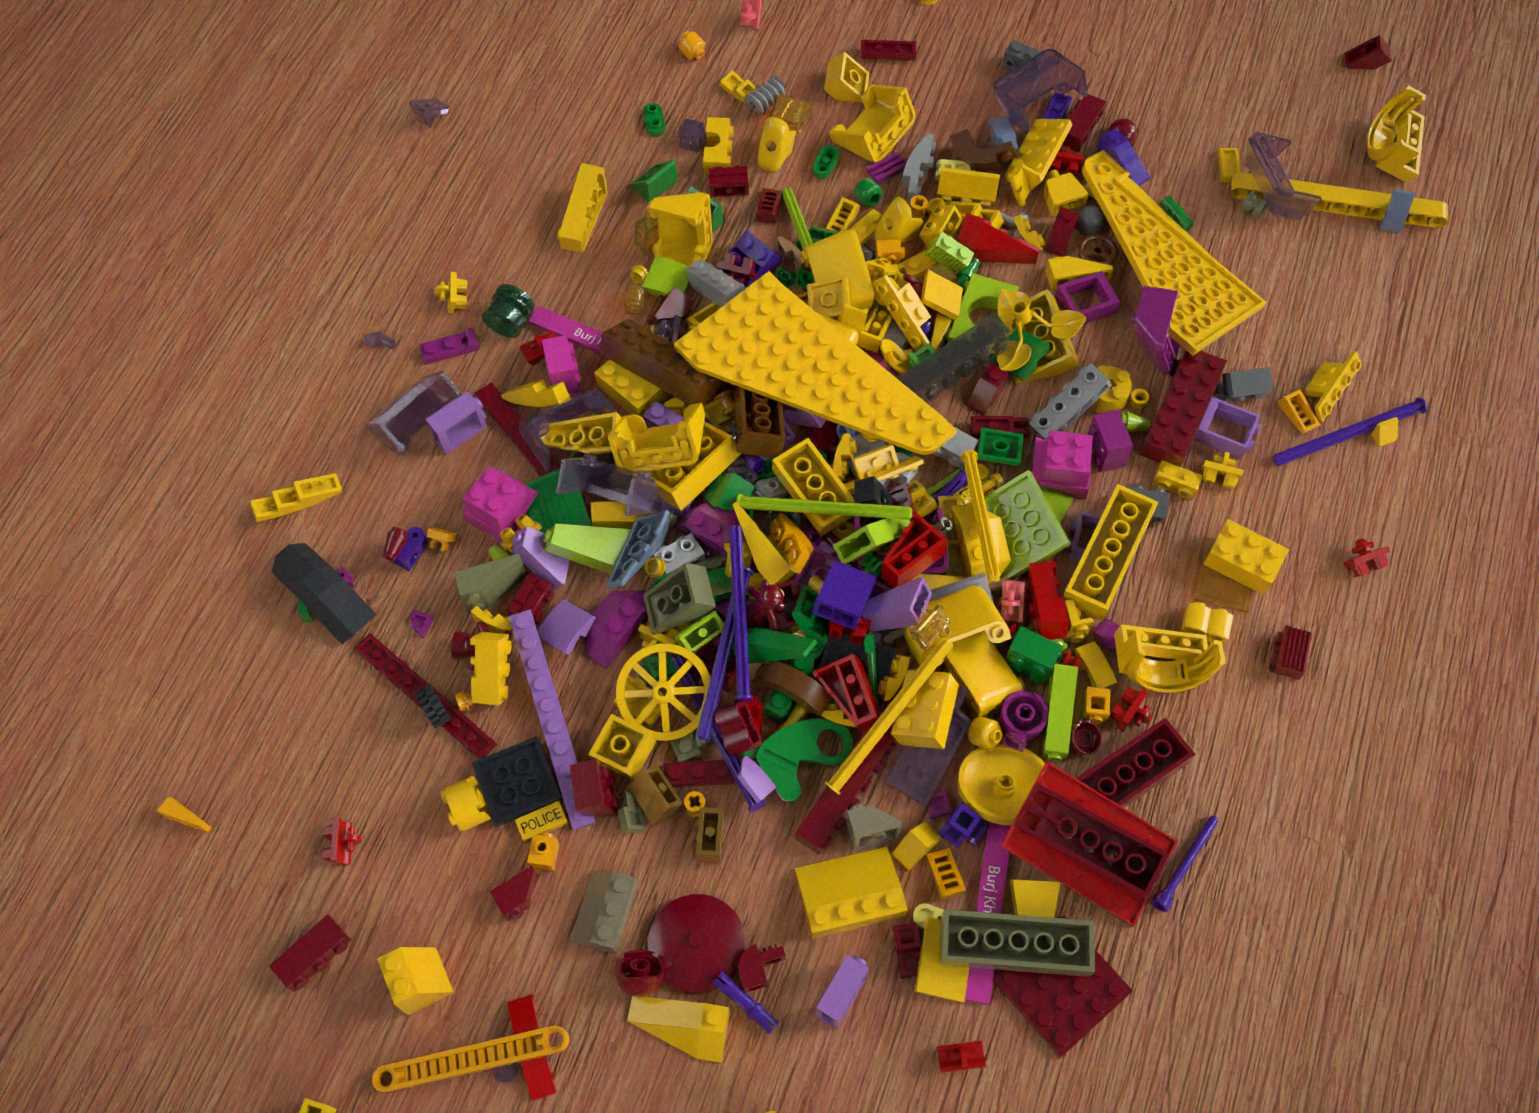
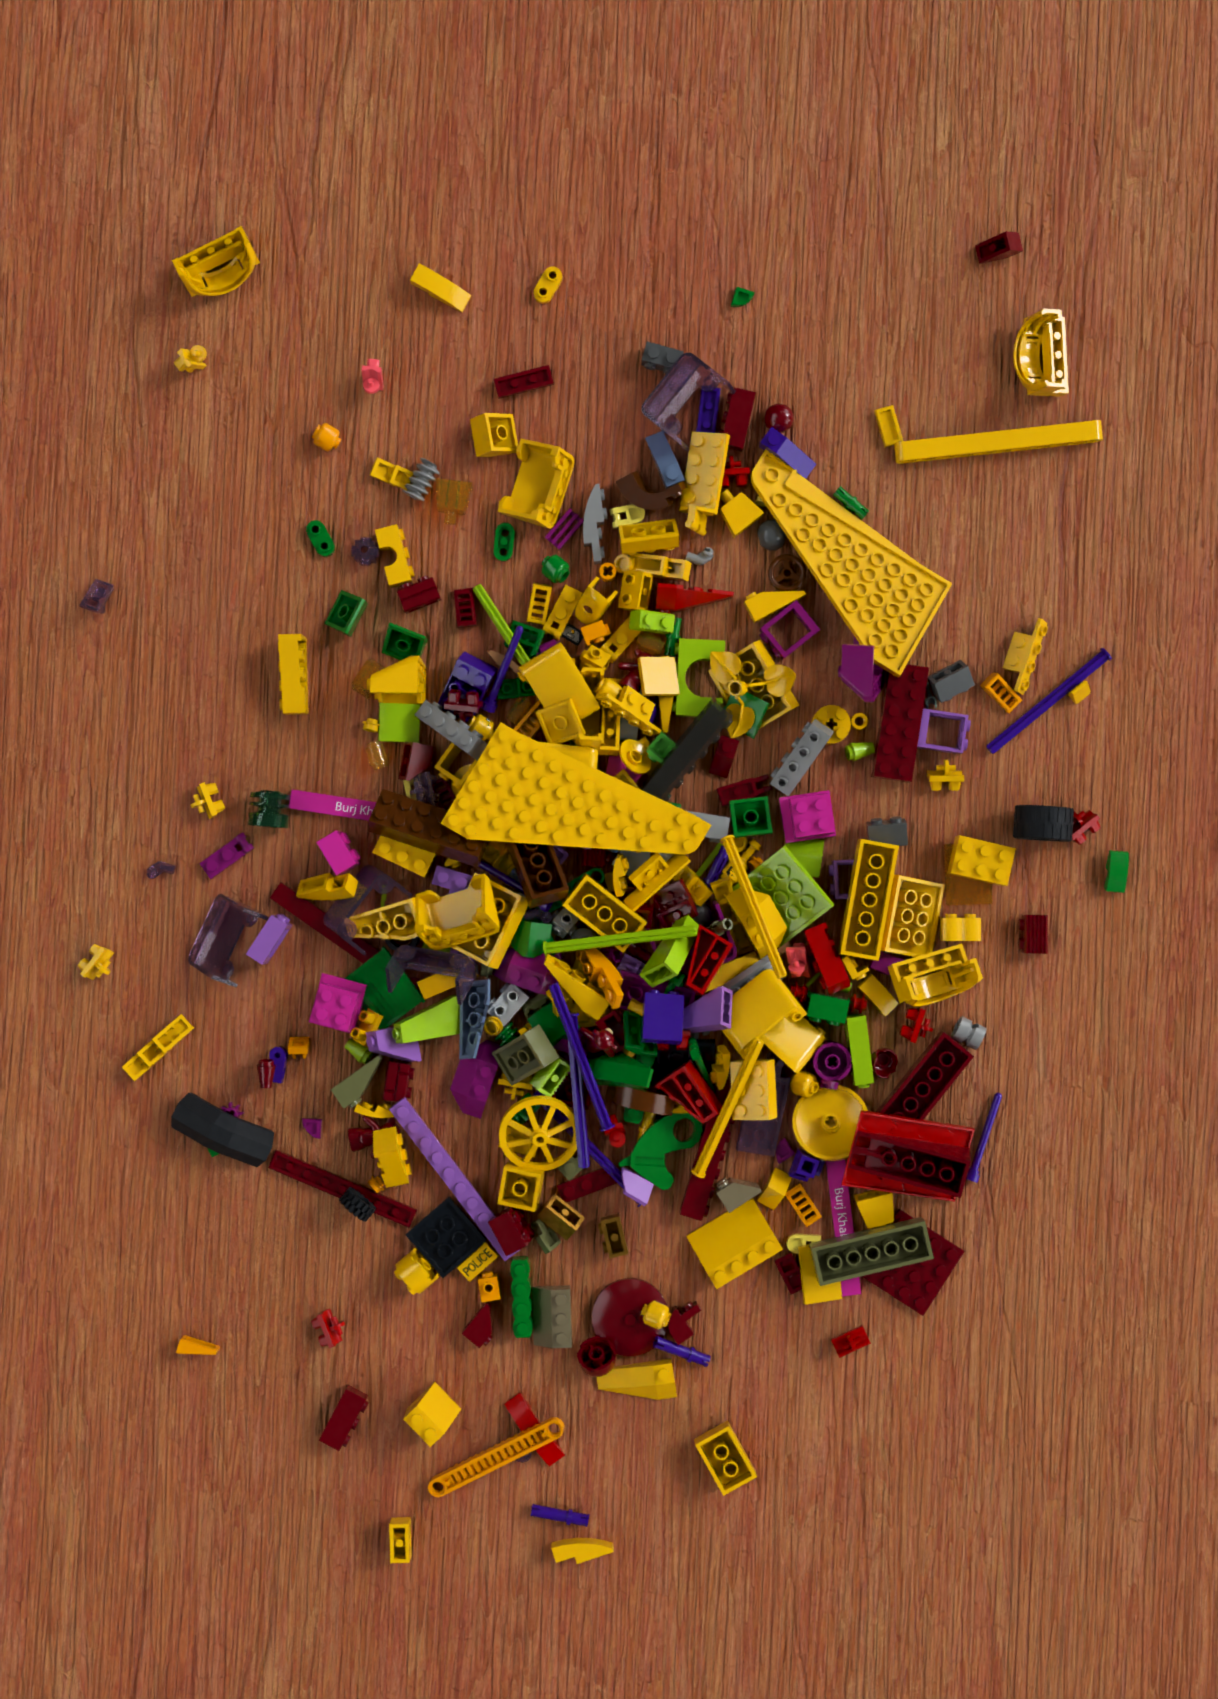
camera: 20 degrees left, 25 degrees up
(275, 401) = (98, 963): none -> yellow hips
(534, 350) = (314, 832): red hips -> none
(565, 626) = (436, 1097): medium lavender slope -> none
(573, 880) = (521, 1293): none -> green brick
(694, 797) = (596, 1218): light orange bush -> none
(728, 940) = (656, 1314): none -> yellow head
(737, 728) = (609, 1150): dark red brick -> none
(776, 131) = (450, 539): yellow piece -> none
(795, 244) = (489, 703): none -> dark purple piece
(842, 991) = (751, 1324): medium lavender window -> none
(871, 492) = (658, 912): black brick -> none
(933, 624) = (743, 1032): clear yellow hips -> none
(1031, 237) = (722, 577): yellow slope -> none
(1062, 231) = (748, 560): dark red slope -> none
(1096, 698) = (887, 1022): light orange brick -> none
(1109, 441) = (842, 782): magenta brick -> none
(1111, 39) = (741, 297): none -> green tile
(1152, 590) = (912, 916): none -> yellow slope
(1177, 480) = (909, 794): yellow bracket -> none
(1193, 734) = (967, 1032): none -> light grey wheel
(1254, 205) = (920, 472): olive wheel -> none
(1272, 180) = (929, 446): windscreen -> none
(1325, 533) = (1043, 823): none -> black tyre
(1397, 210) = (1054, 445): sand blue slope -> none
(1400, 615) = (1117, 873): none -> green slope

